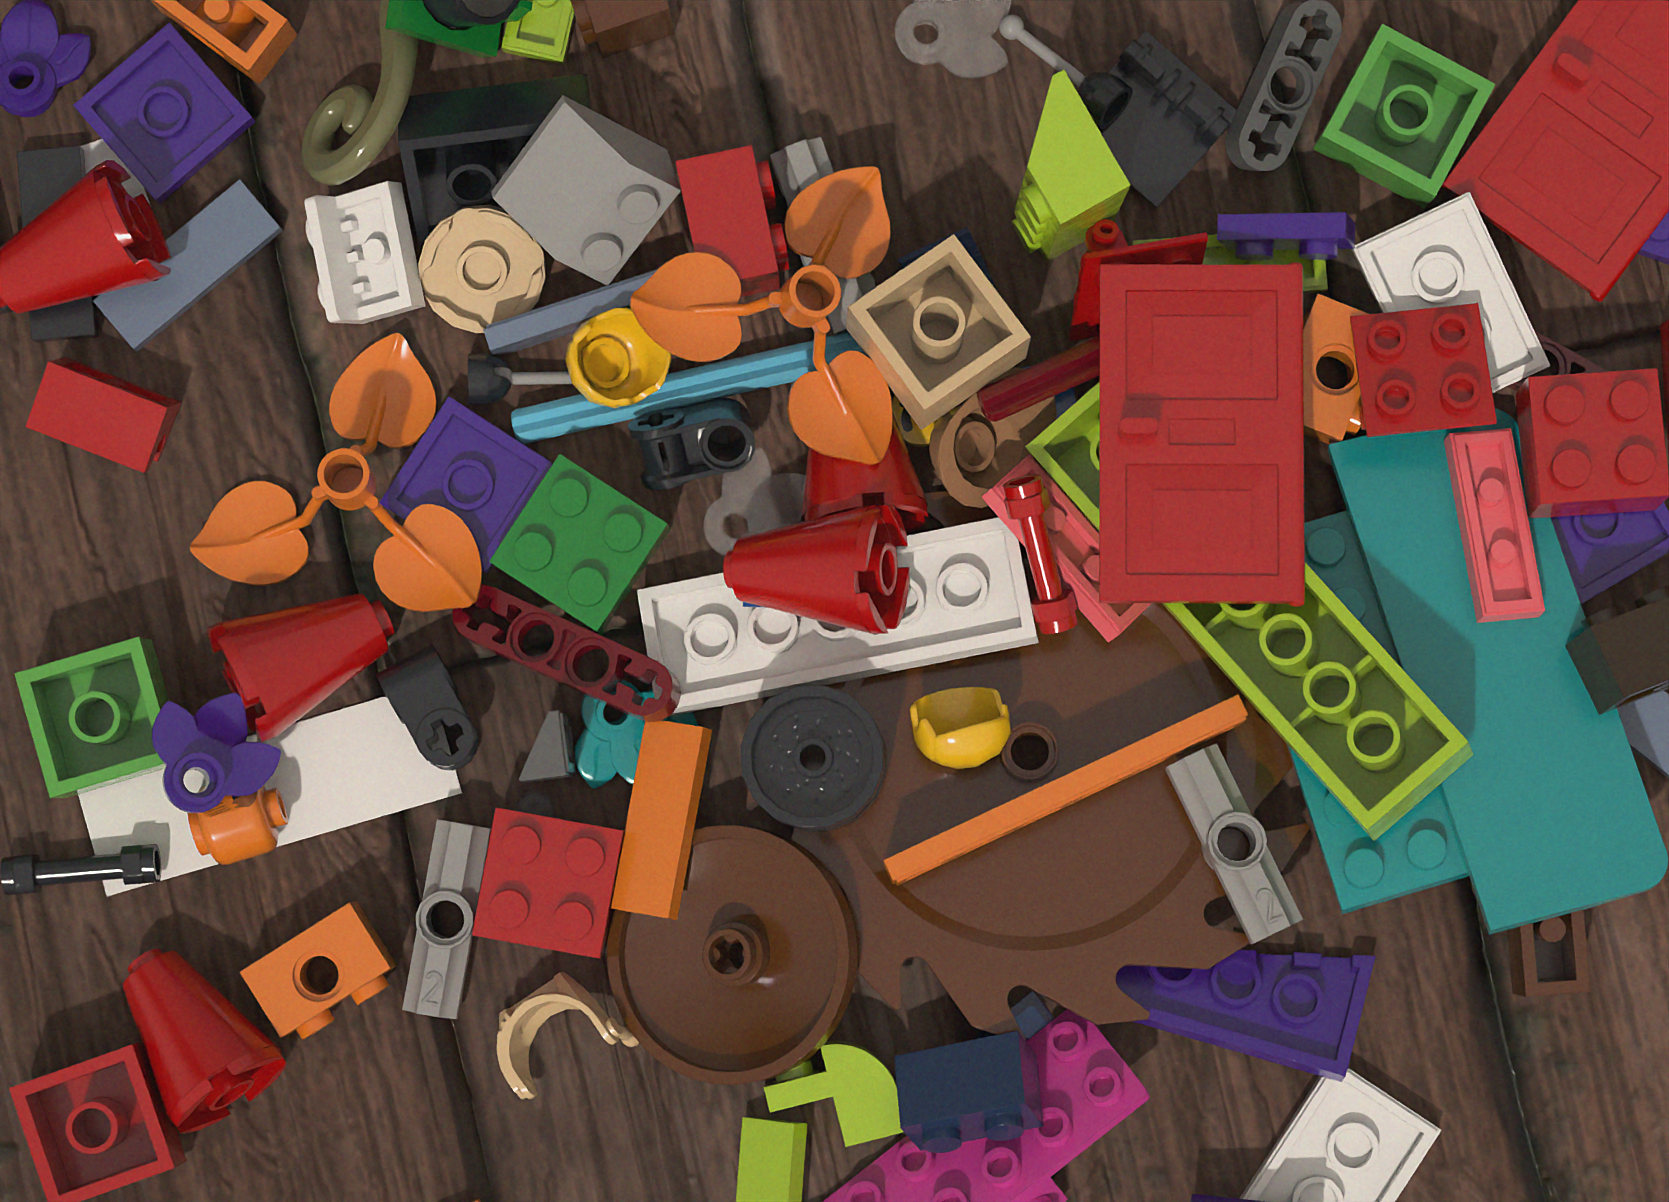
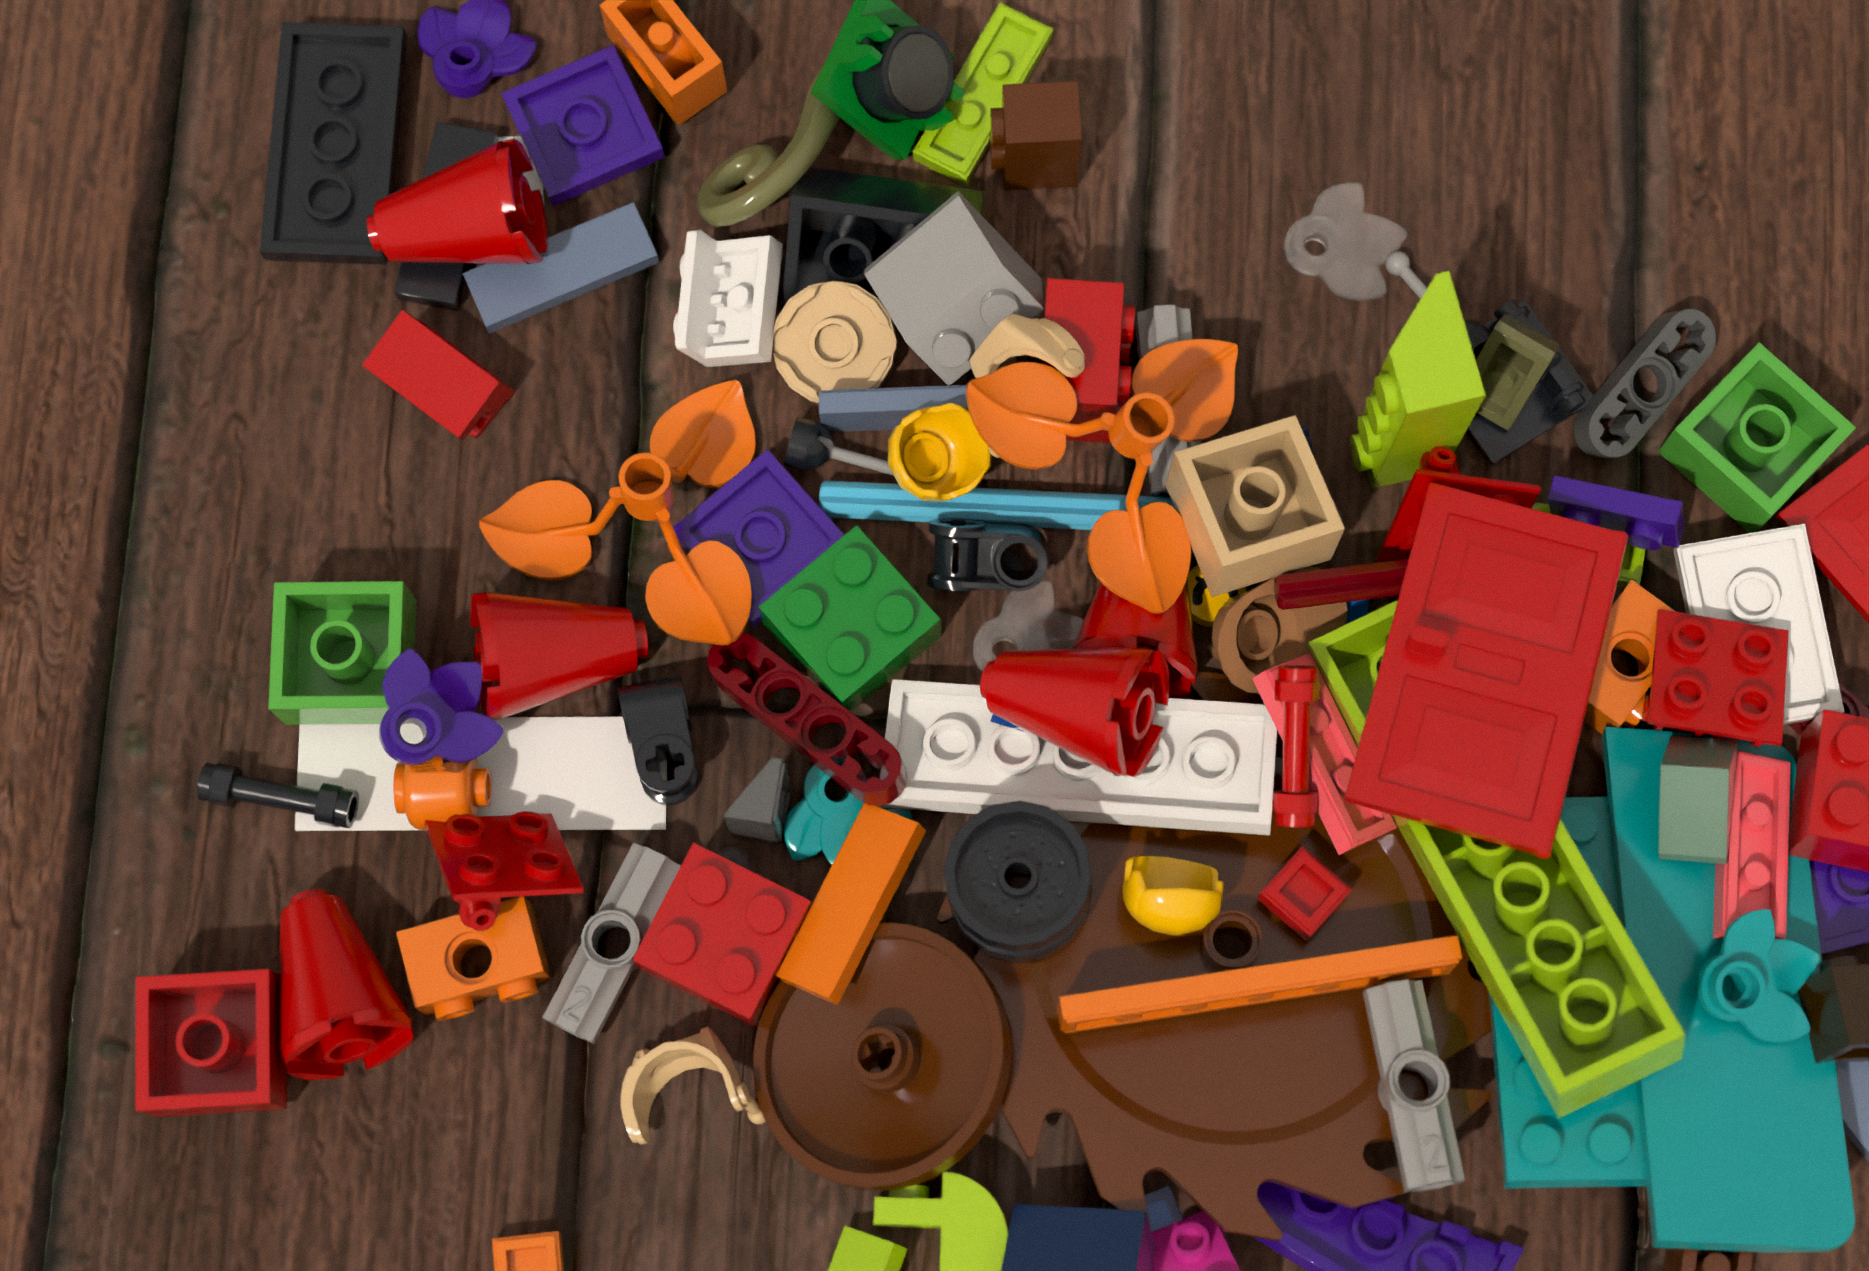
camera: 20 degrees right, 10 degrees down
(319, 876) = (499, 859): none -> red hinge
(674, 230) = (1030, 337): none -> tan helmet
(1085, 687) = (1304, 894): none -> red tile
(1148, 114) = (1511, 368): none -> olive slope
(1429, 493) = (1696, 799): none -> sand green slope
(1533, 649) = (1764, 979): none -> teal plate

